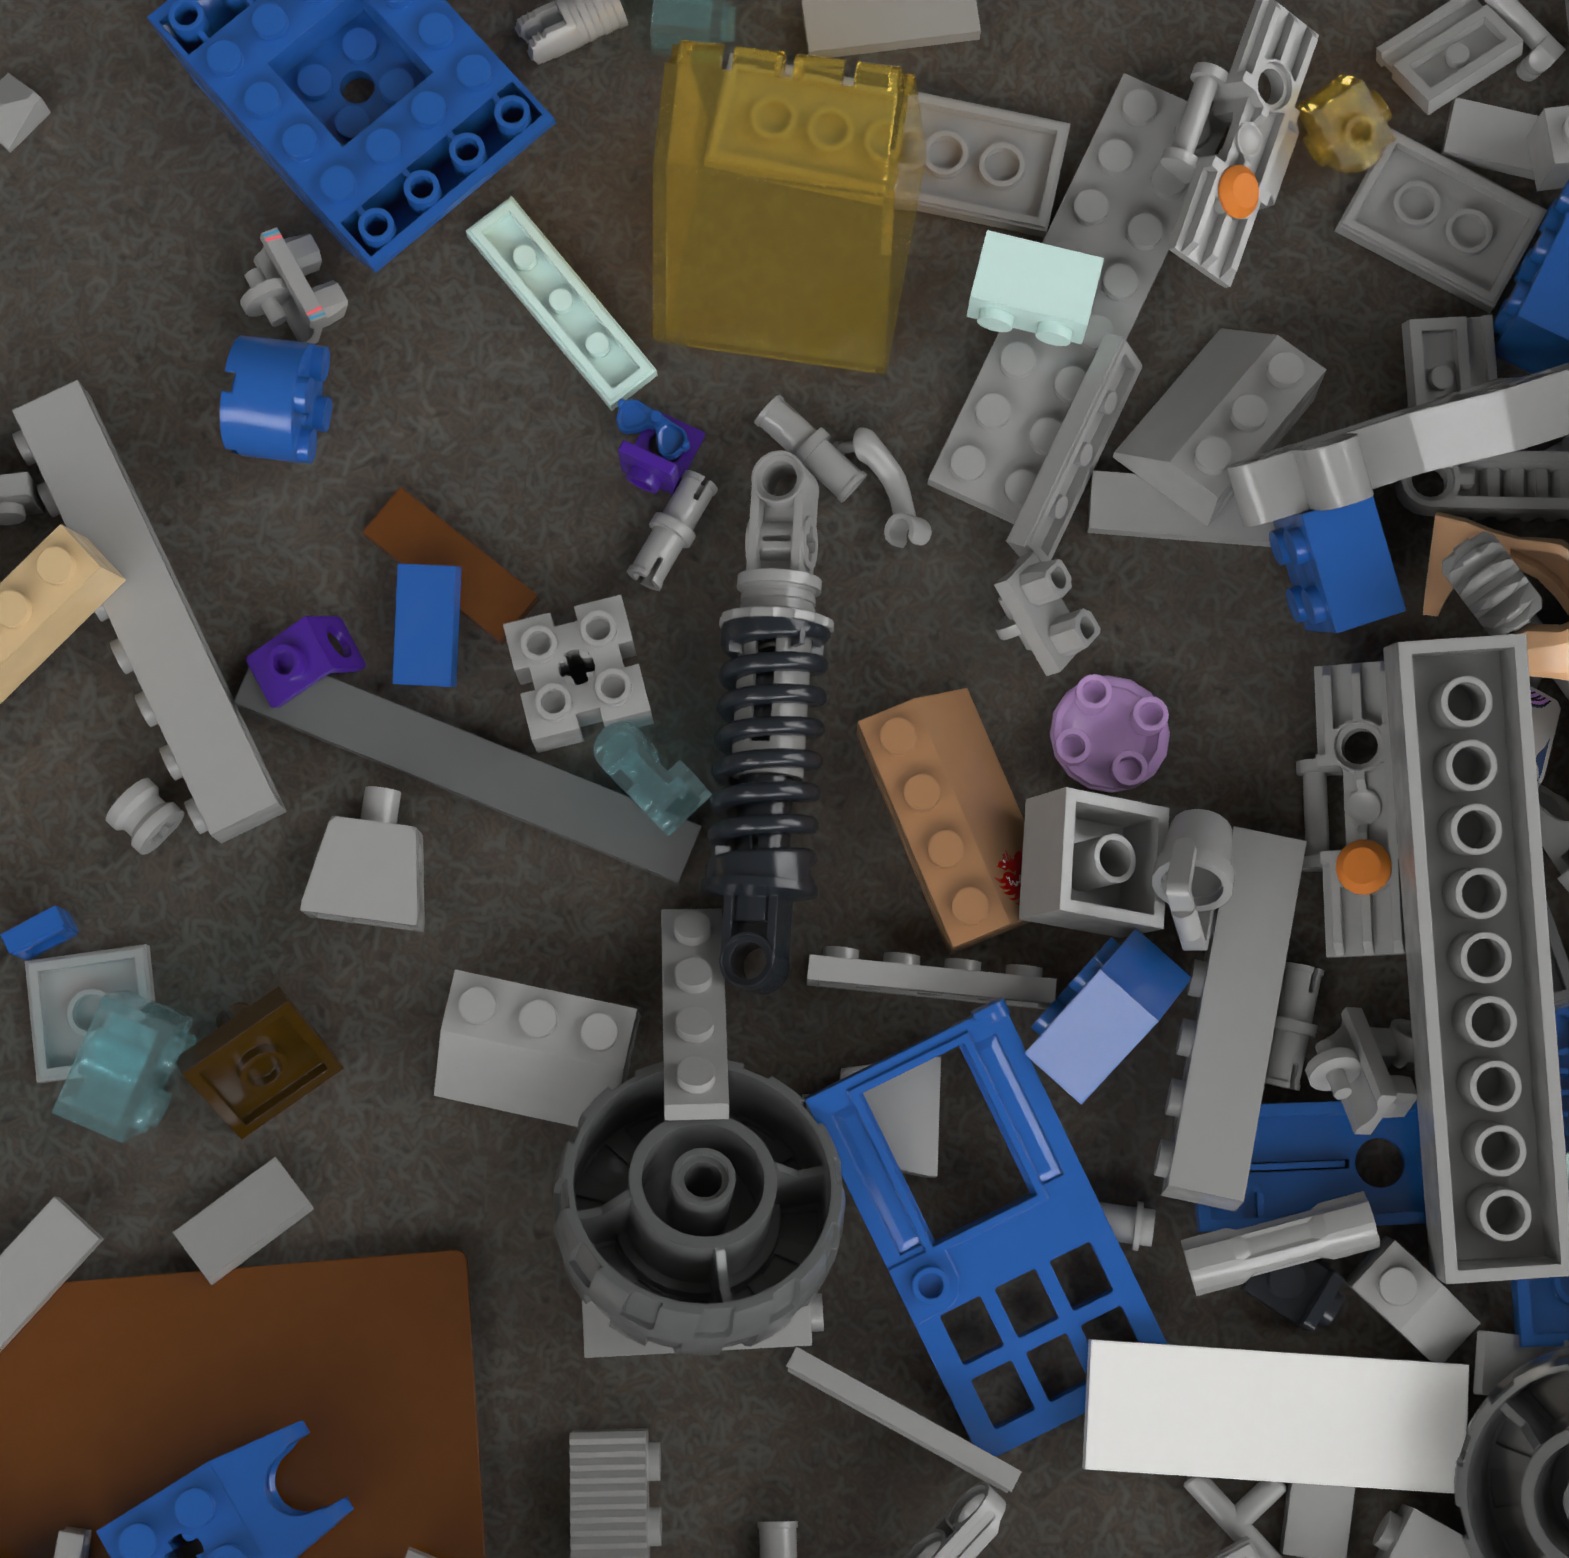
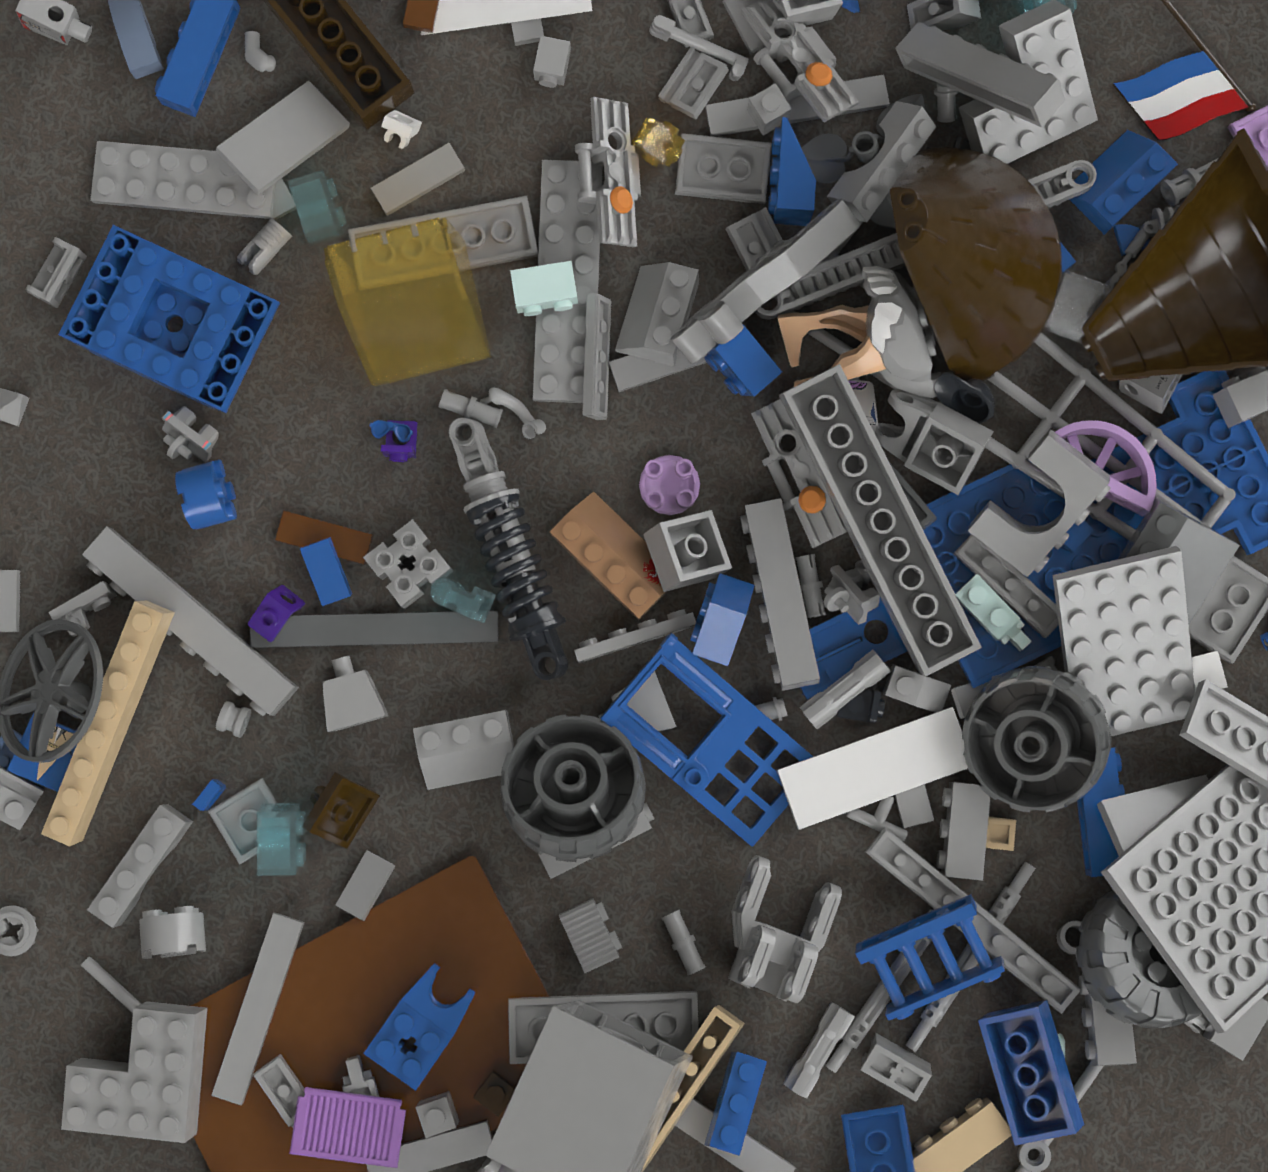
camera: 25 degrees left, 5 degrees up
(561, 303) = (320, 387): light aqua tile -> none
(672, 530) = (422, 476): light grey pin -> none
(694, 1016) = (532, 701): light grey plate -> none
(903, 1421) = (705, 843): light grey tile -> none
(1037, 614) = (612, 443): light grey hips -> none
(1195, 873) = (735, 536): light grey piece -> none
(1491, 584) = (816, 343): light grey gear -> none

